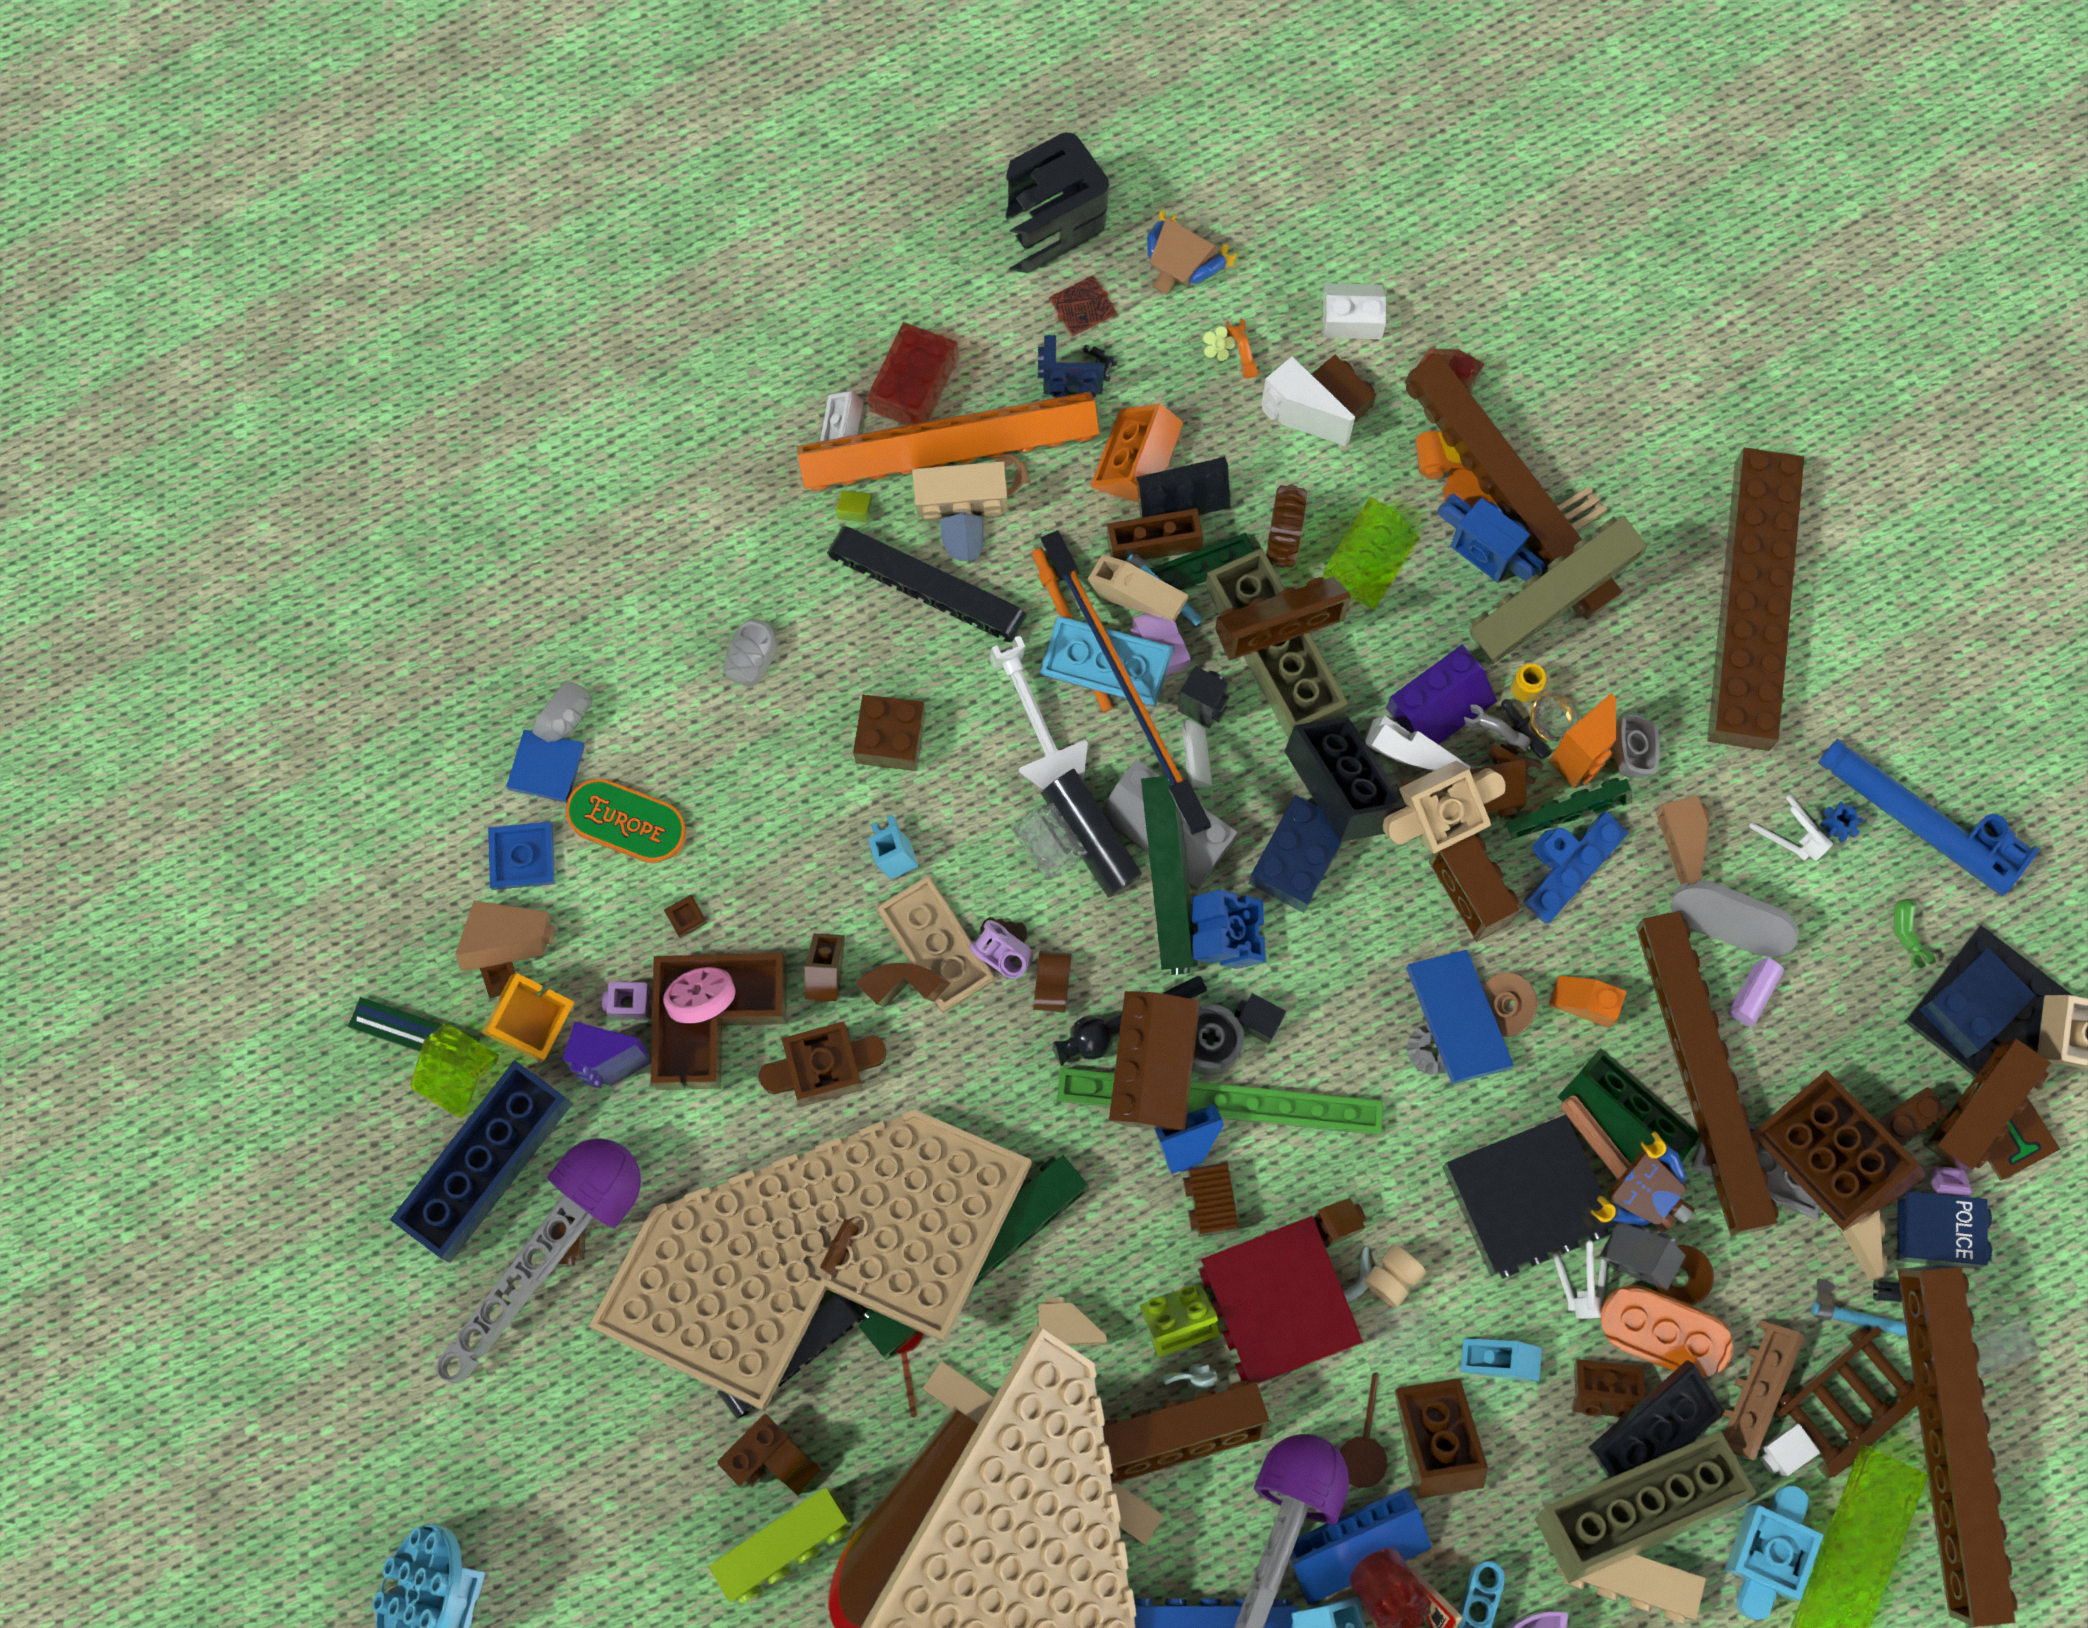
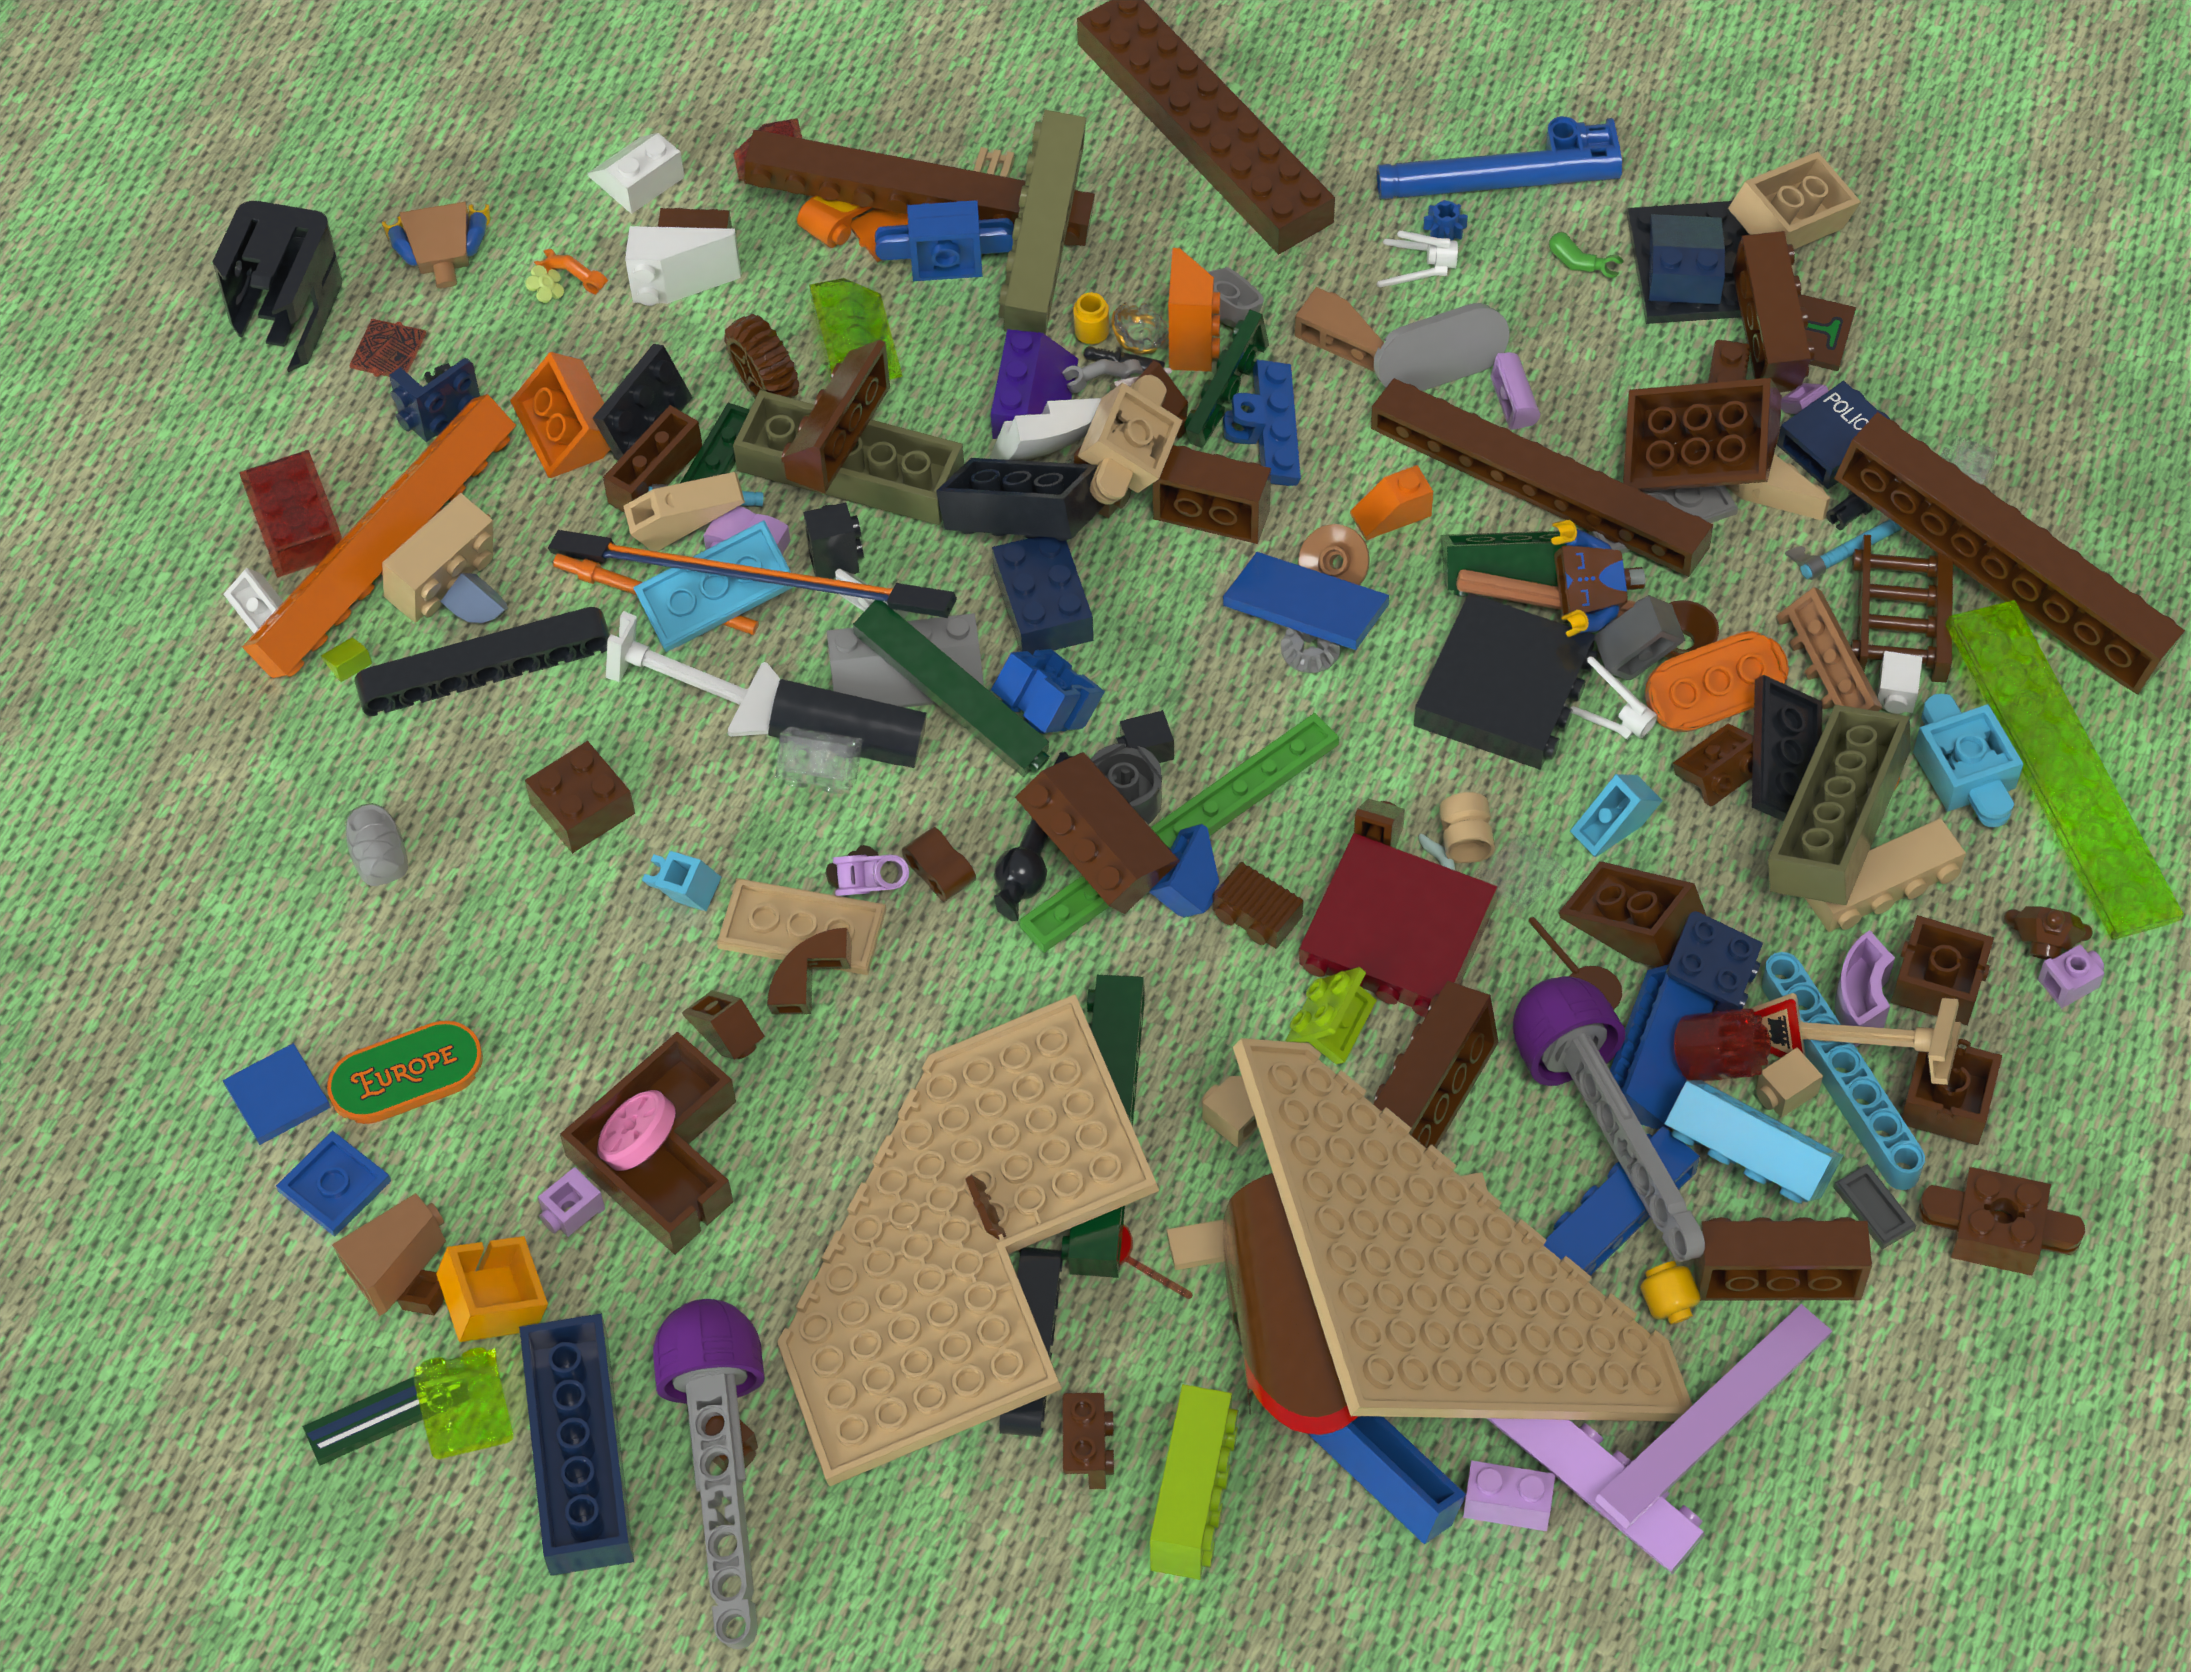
camera: 45 degrees left, 15 degrees down
(562, 712) = (250, 1031): light grey piece -> none
(603, 1055) = (602, 1244): dark purple slope -> none
(685, 916) = (547, 1098): reddish brown tile -> none
(792, 1466) = (1132, 1416): reddish brown axle -> none
(822, 1064) = (807, 1094): reddish brown brick -> none
(1197, 1376) = (1388, 1045): light aqua plate -> none
(1447, 1531) = (1715, 961): none -> dark blue bracket

